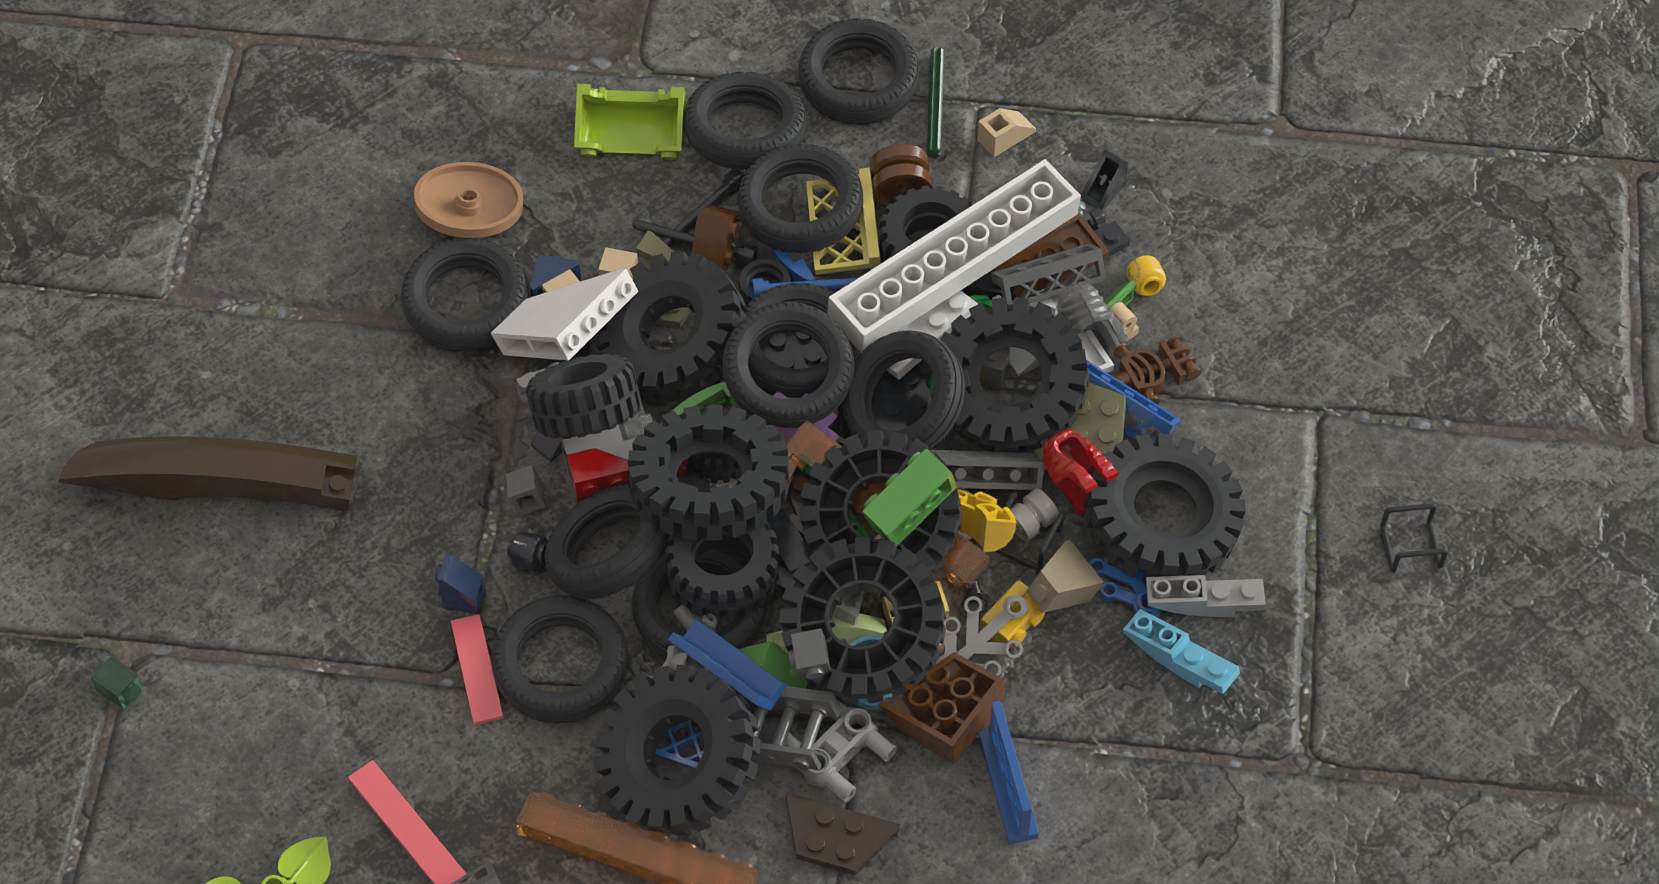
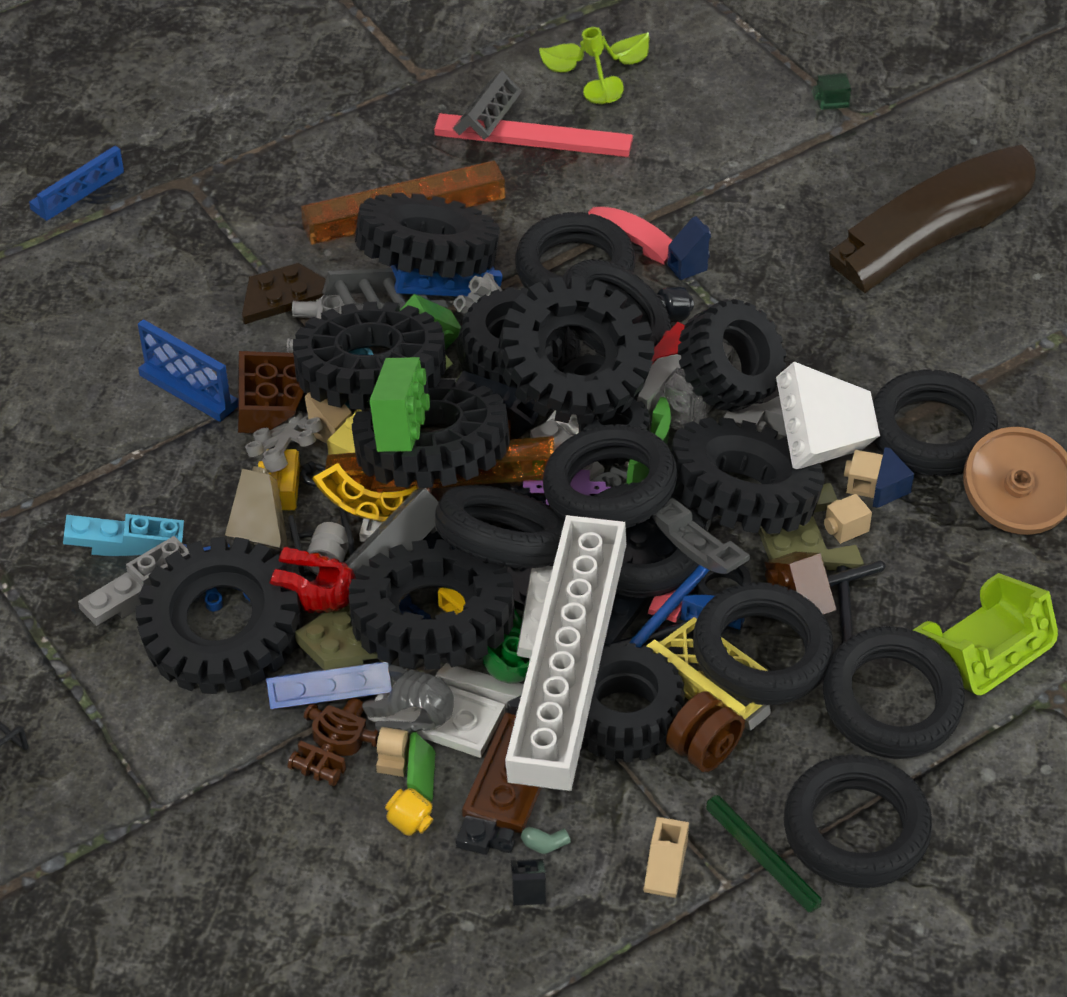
camera: 140 degrees right, 10 degrees down
(730, 664) = (438, 288): blue fence -> none
(775, 262) = (696, 542): none -> dark grey slope
(809, 654) = (380, 297): dark grey brick -> none
(1049, 265) = (487, 738): dark grey fence -> none

